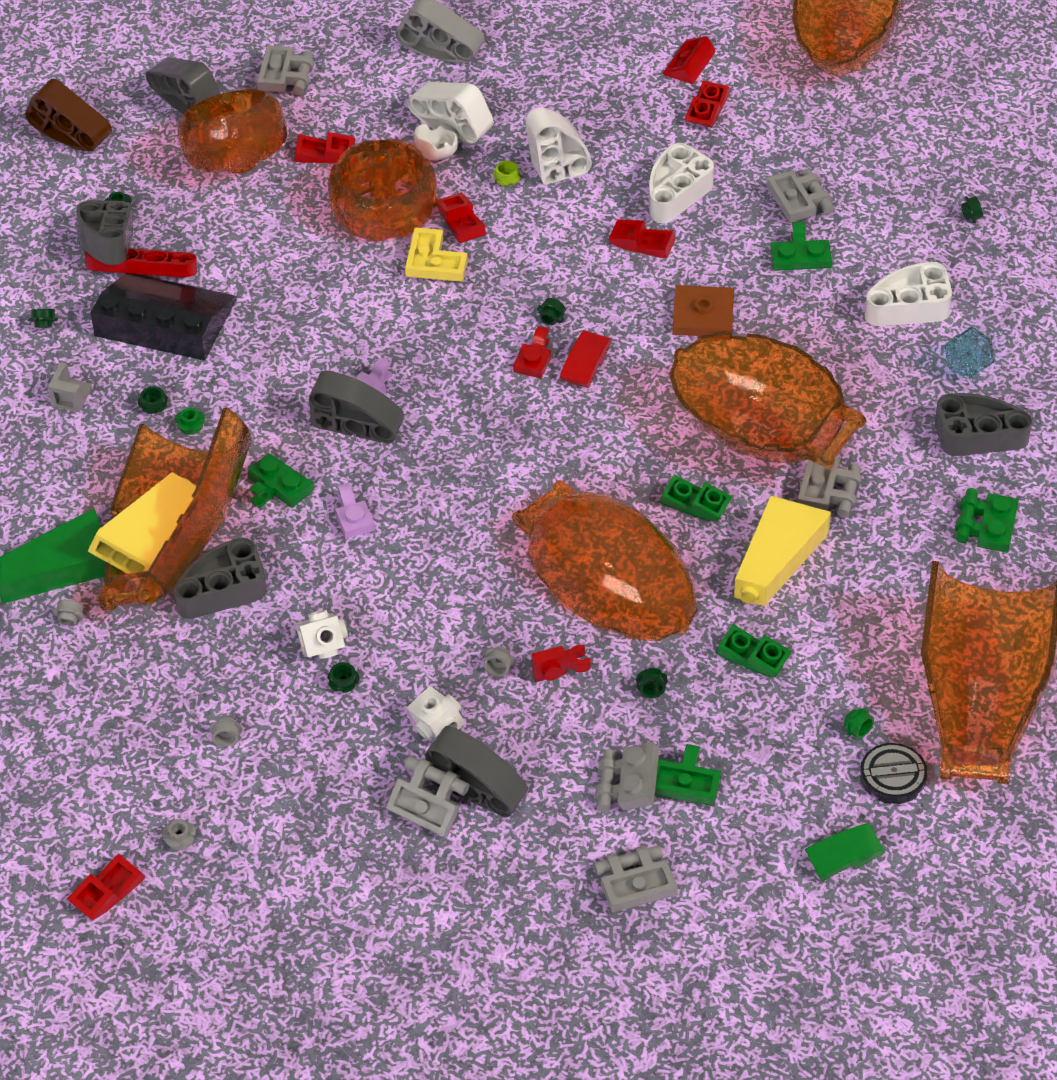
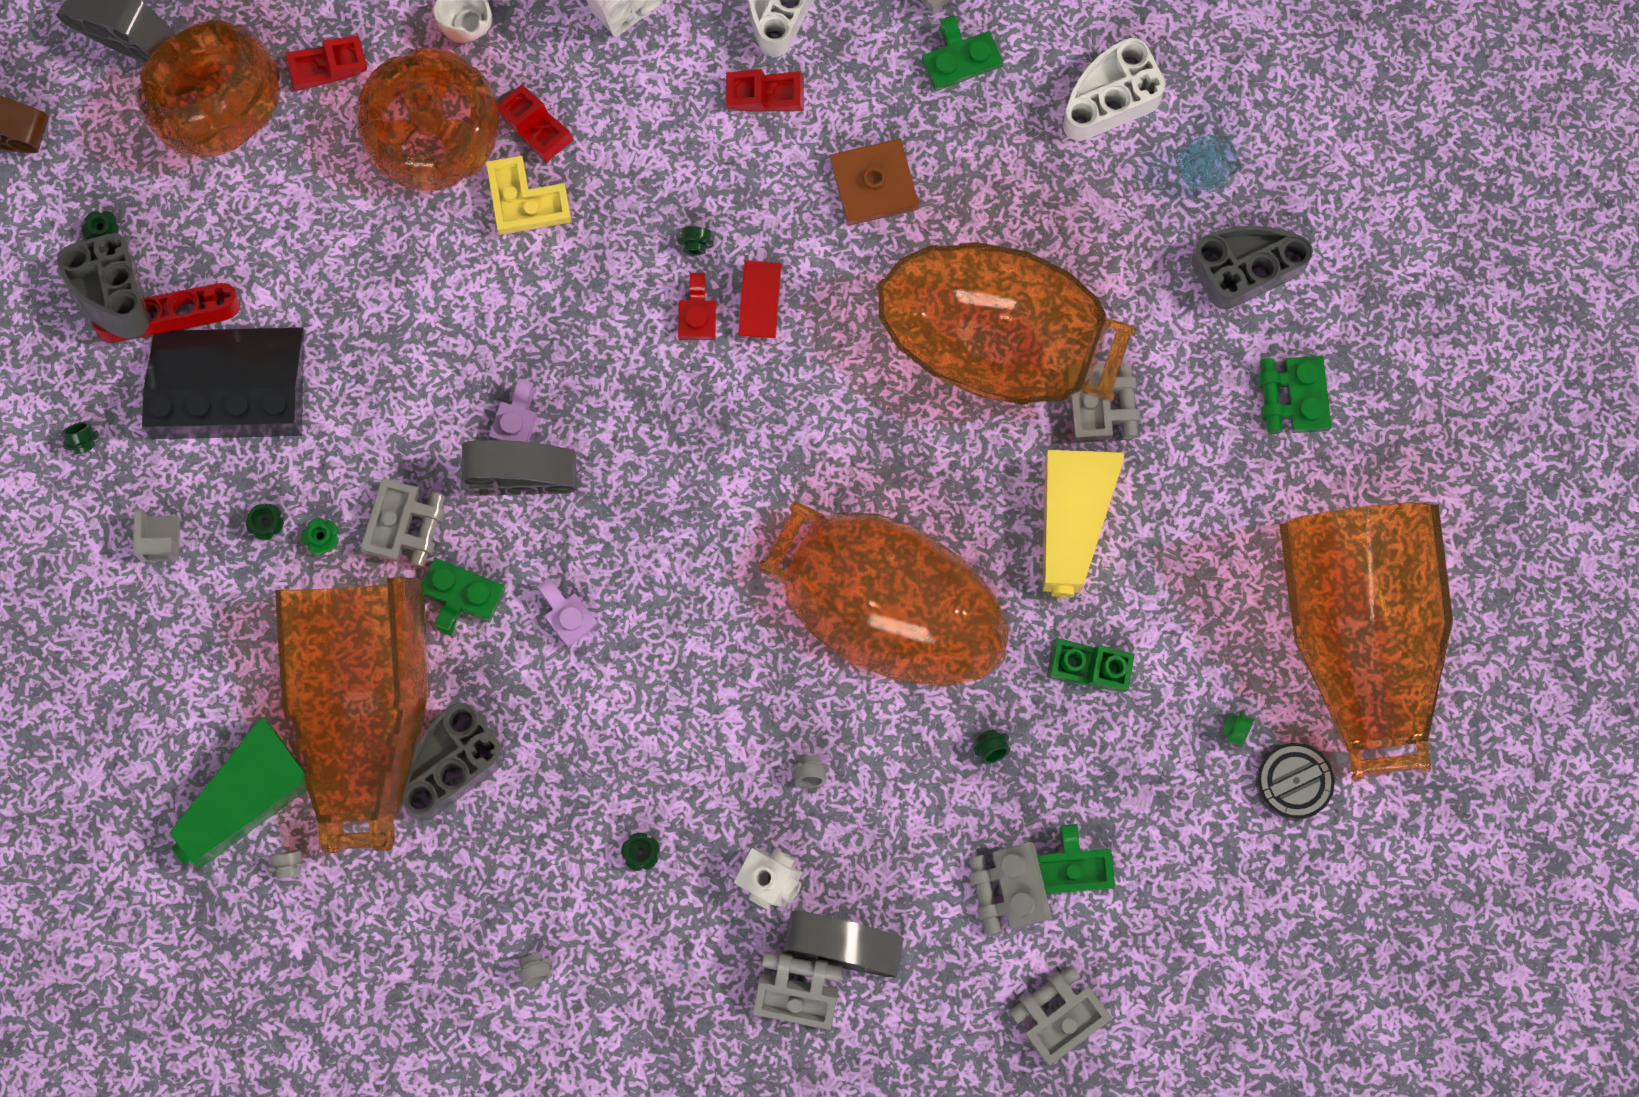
camera: 20 degrees left, 25 degrees up
(141, 529) = (341, 735): light yellow slope -> none
(259, 414) = (391, 521): none -> light grey plate
(311, 629) = (597, 807): white brick -> none
(506, 173) = (566, 29): lime plate -> none
(555, 661) = (873, 760): red plate -> none
(702, 502) = (955, 468): green slope -> none
(844, 849) = (1276, 908): green slope -> none

